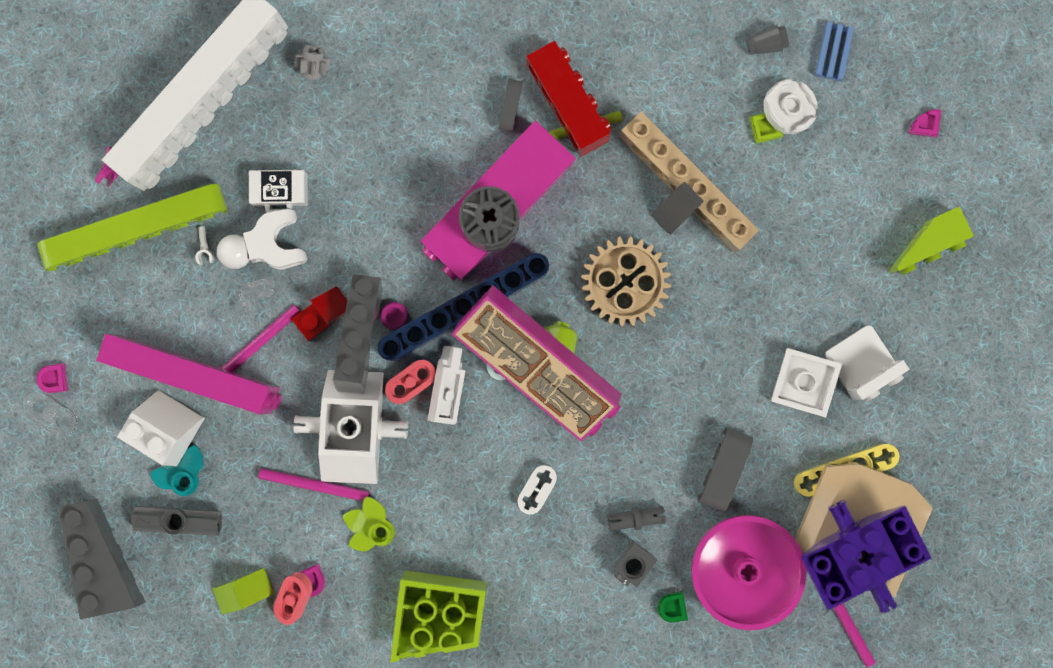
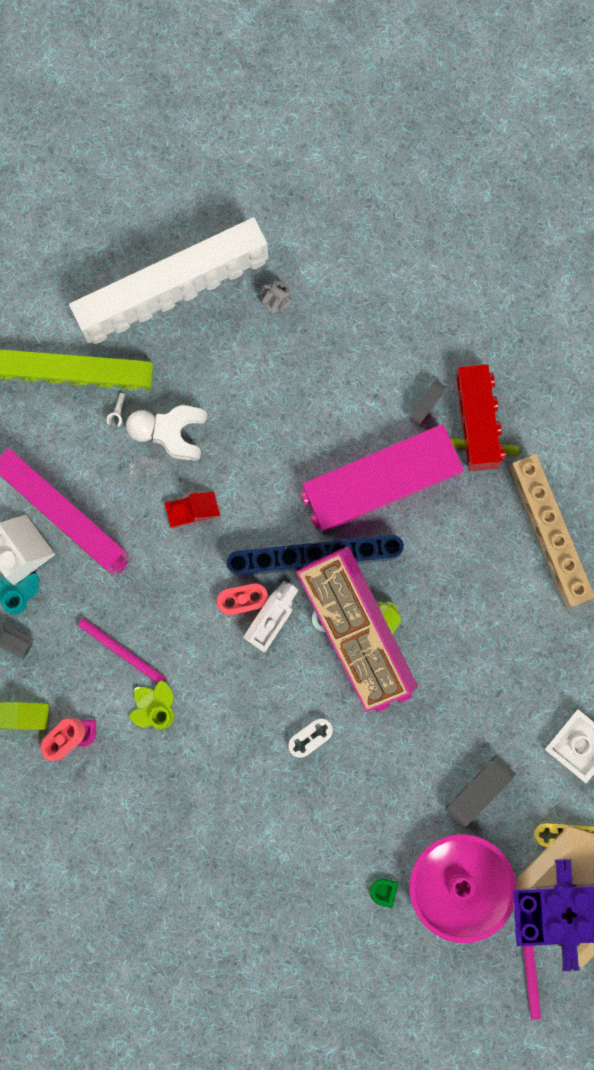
camera: 25 degrees right, 5 degrees down
(106, 172) = (65, 315): dark pink hand -> none
(261, 339) = (132, 509): dark pink bar -> none
(278, 188) = (201, 389): piece -> none
(345, 455) = (169, 641): white slope -> none
(355, 341) = (215, 538): dark grey arch -> none
(394, 315) = (252, 537): dark pink tile -> none
(437, 614) = (179, 807): lime wedge -> none
(493, 235) = (368, 504): dark grey wheel -> none
(634, 551) = (378, 838): dark grey brick -> none
(636, 518) = (385, 800): dark grey pin -> none
(641, 301) = (455, 571): tan gear -> none
(677, 207) = (533, 549): dark grey tile -> none

